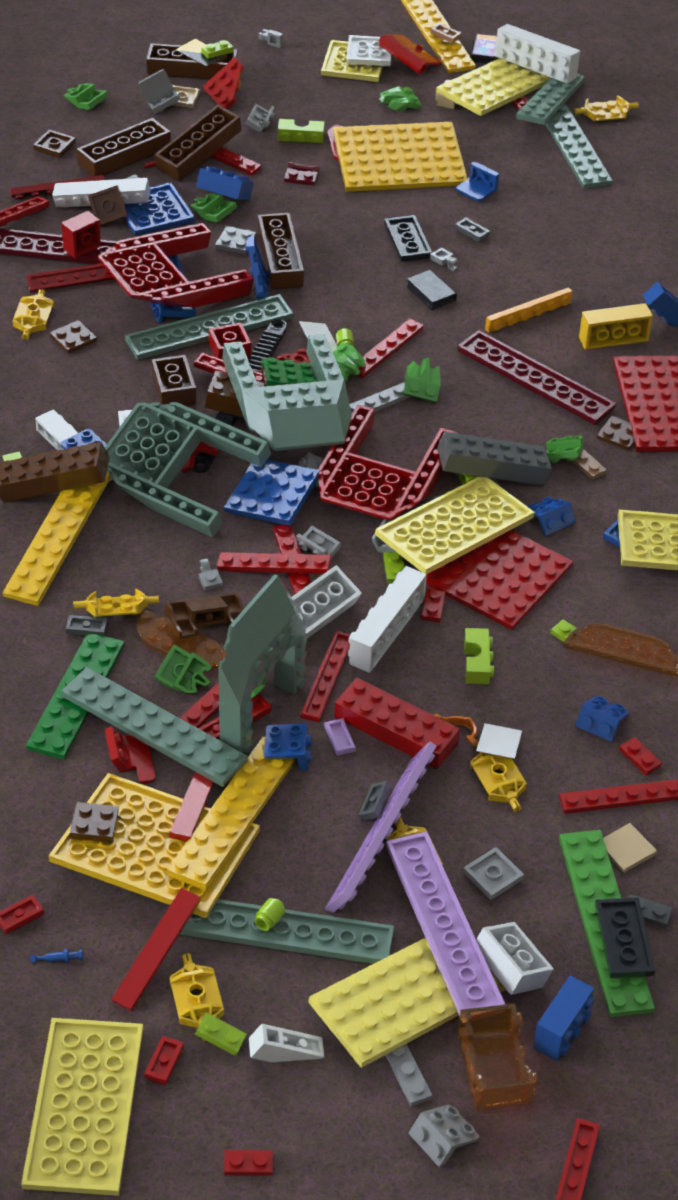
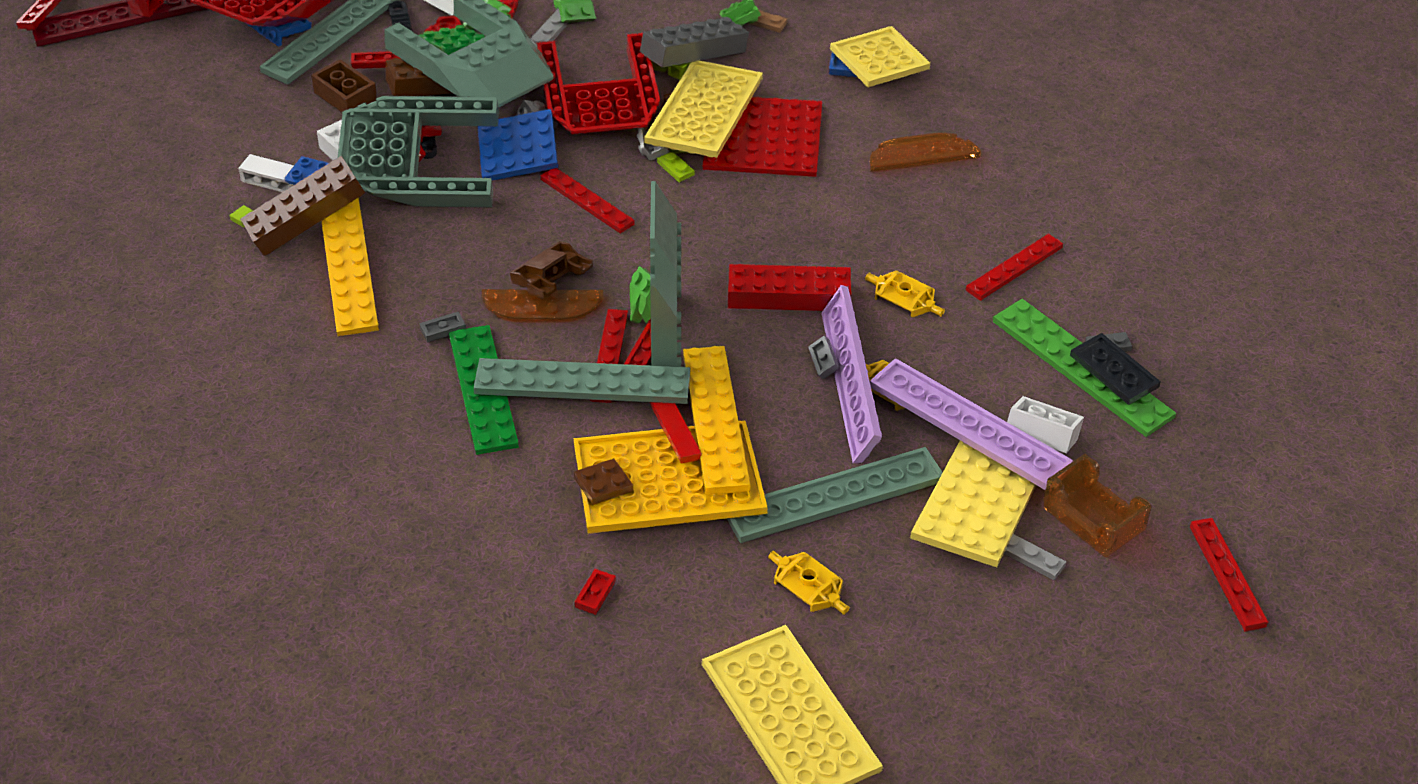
camera: 30 degrees left, 0 degrees up
(32, 320) = (151, 87): yellow plate -> none
(59, 956) = (661, 608): blue piece -> none
(68, 277) = (163, 33): red plate -> none
(73, 336) = (206, 87): plate -> none
(116, 605) = (457, 297): yellow plate -> none
(130, 754) = (579, 415): red plate -> none
(156, 949) = (747, 559): red tile -> none
(164, 1060) = (827, 645): red plate -> none
(182, 671) = (566, 325): bright green plate -> none
(209, 578) = (519, 241): light grey plate -> none
(220, 1034) = (857, 600): lime plate -> none
(228, 334) = (366, 35): red brick -> none
(248, 1162) = (965, 689): red plate -> none
(269, 914) = (821, 484): lime brick -> none
(274, 563) = (571, 203): red plate -> none
(281, 1045) = (914, 583): white slope -> none
(289, 742) = (713, 342): blue bracket -> none
(318, 542) = (595, 172): light grey bracket -> none
(325, 599) = (632, 239): white brick -> none
(326, 678) = (696, 281): red tile -> none
(339, 737) = (747, 321): lavender tile -> none
(387, 619) = (712, 207): white brick -> none
(433, 605) = (735, 183): red plate -> none
(441, 1132) = (1099, 587): light grey bracket -> none
(465, 721) = (847, 262): orange helmet -> none
(478, 644) = (817, 213): lime arch -> none
(493, 873) = (967, 370): light grey plate -> none
(499, 740) = (884, 265): white sticker -> none
(553, 514) = (777, 68): blue bracket -> none
(562, 630) = (860, 159): lime plate -> none
(564, 1018) = (1123, 451): blue brick -> none
(601, 717) = (950, 213): blue bracket -> none
(628, 848) = (1053, 303): tan tile -> none
(640, 756) = (1002, 229): red plate -> none

